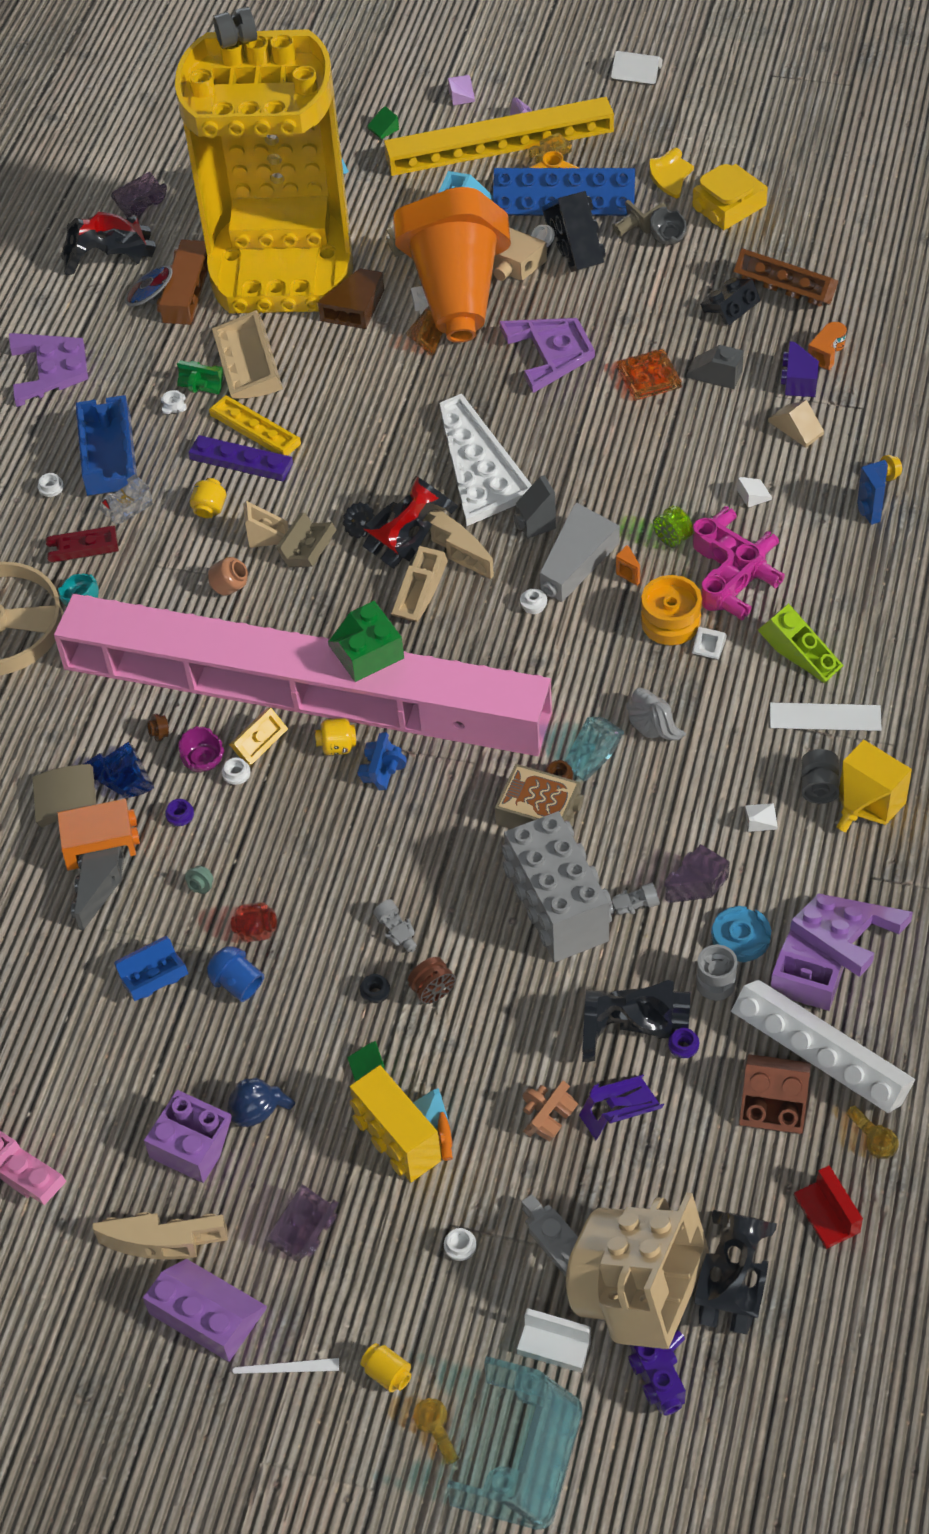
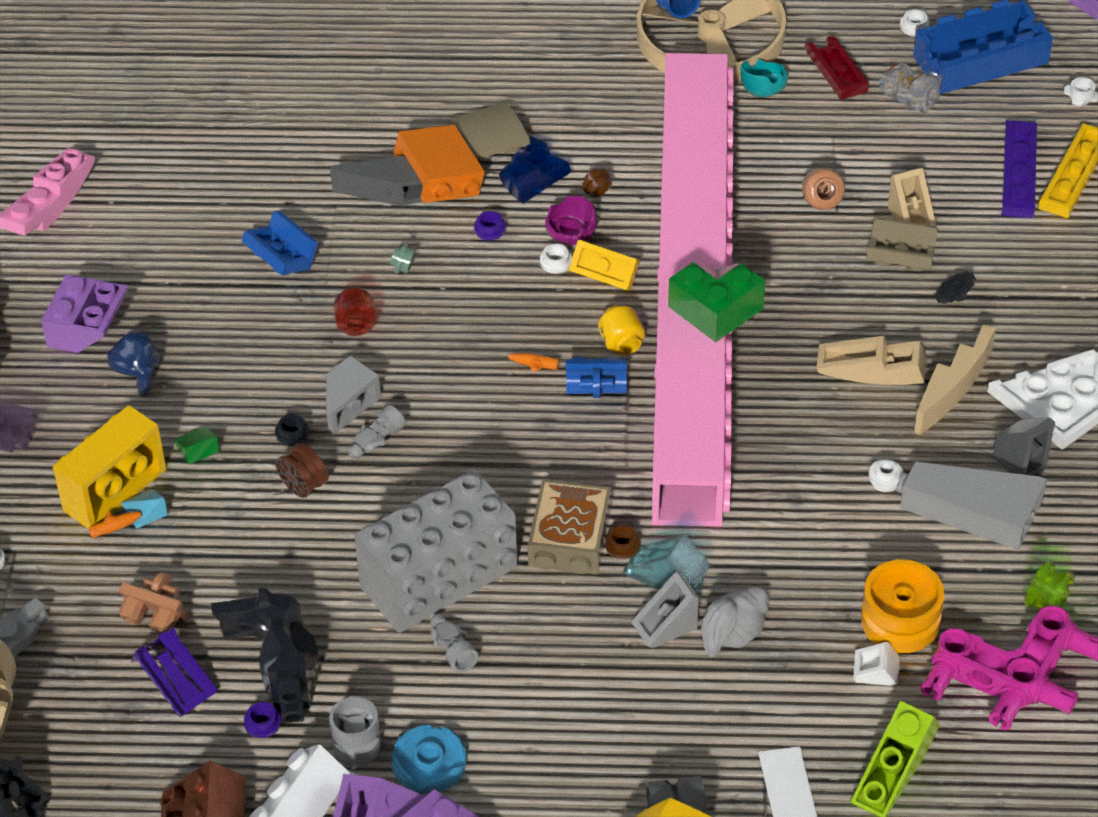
camera: 75 degrees right, 5 degrees down
(207, 498) = (938, 149): yellow head -> none
(234, 973) = (284, 307): blue piece -> none
(347, 803) = (535, 361): none -> orange helmet
(347, 940) = (349, 392): none -> light grey slope
(408, 513) = (946, 314): black hips -> none
(628, 566) = (972, 556): orange slope -> none
(640, 752) = (669, 613): none -> light grey slope
(698, 877) = (497, 697): clear purple slope -> none
(761, 817) = (608, 755): white slope -> none

